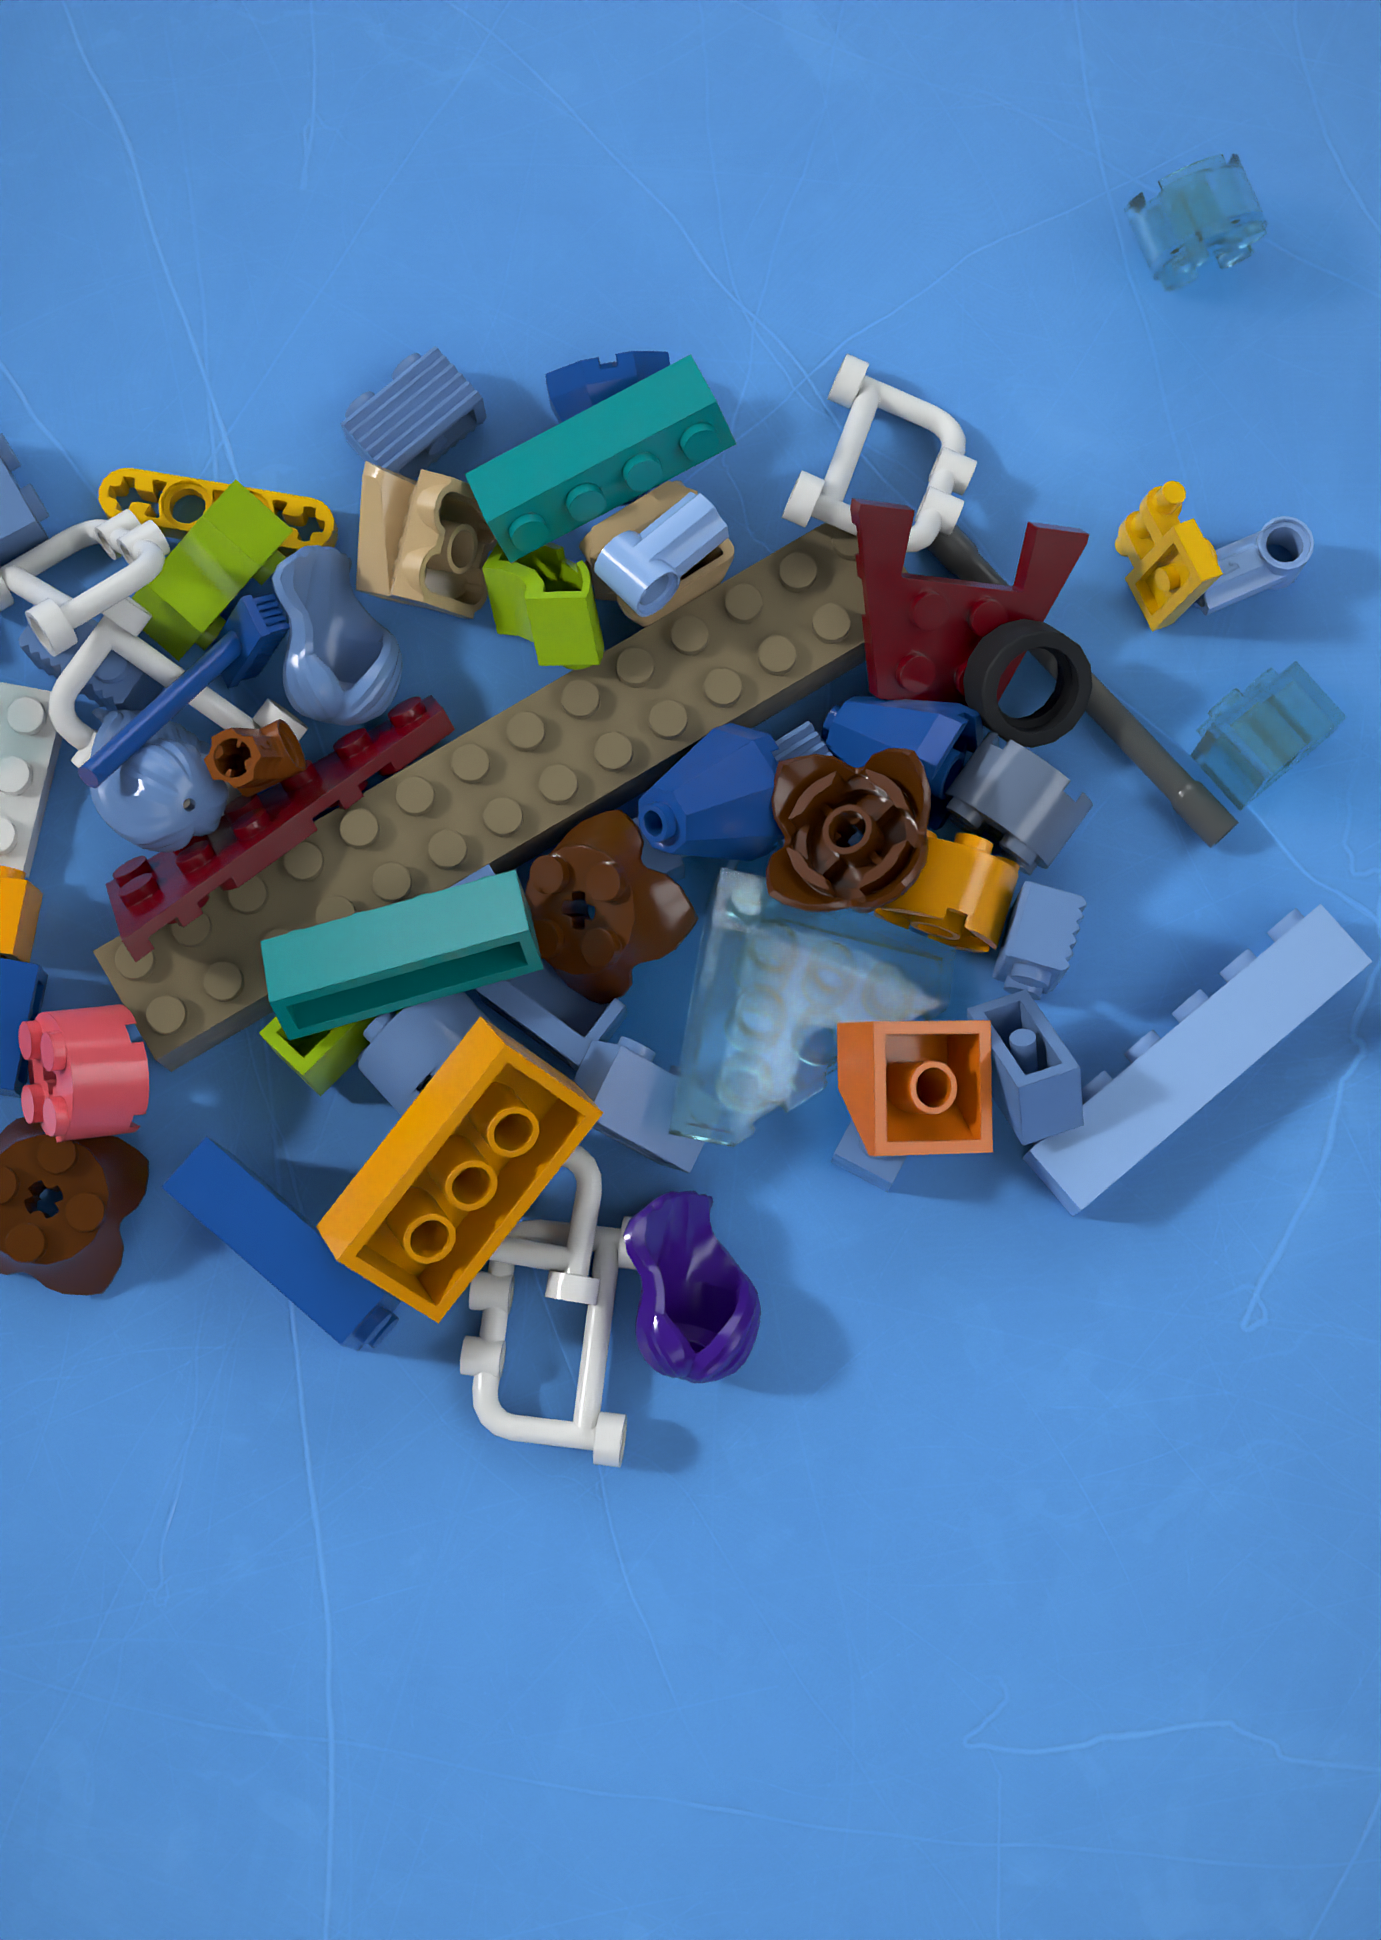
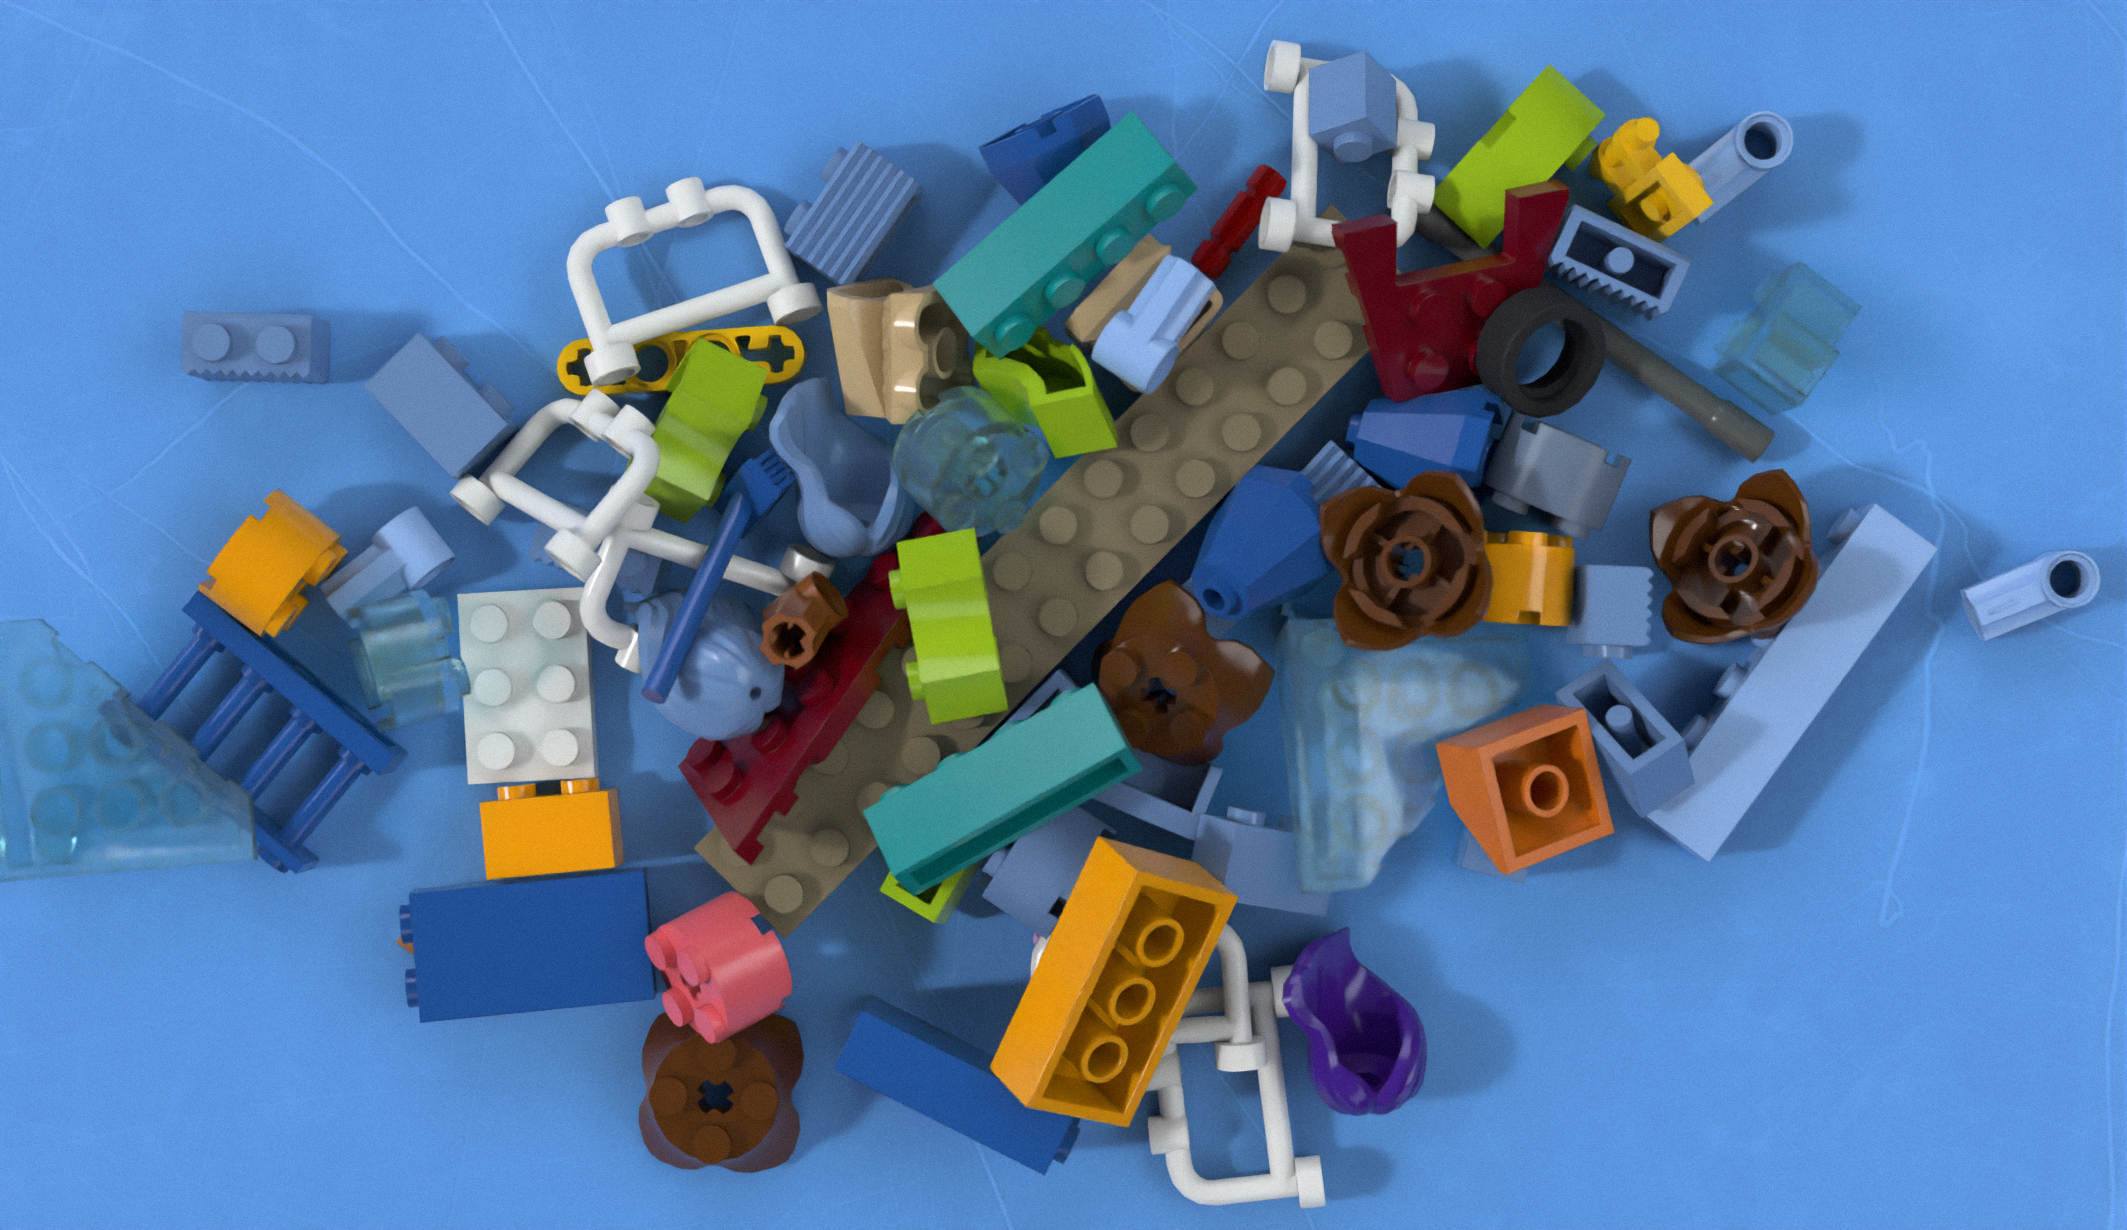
camera: 20 degrees left, 10 degrees up
(151, 484) = (687, 207): none -> white bar
(393, 790) = (950, 625): none -> lime brick
(456, 650) = (969, 462): none -> clear light blue brick
(764, 516) = (1237, 222): none -> red axle
(903, 424) = (1352, 107): none -> medium blue brick
(1079, 490) = (1524, 147): none -> lime brick
(1118, 624) = (1616, 263): none -> medium blue brick
(1173, 930) = (1705, 540): none -> reddish brown brick

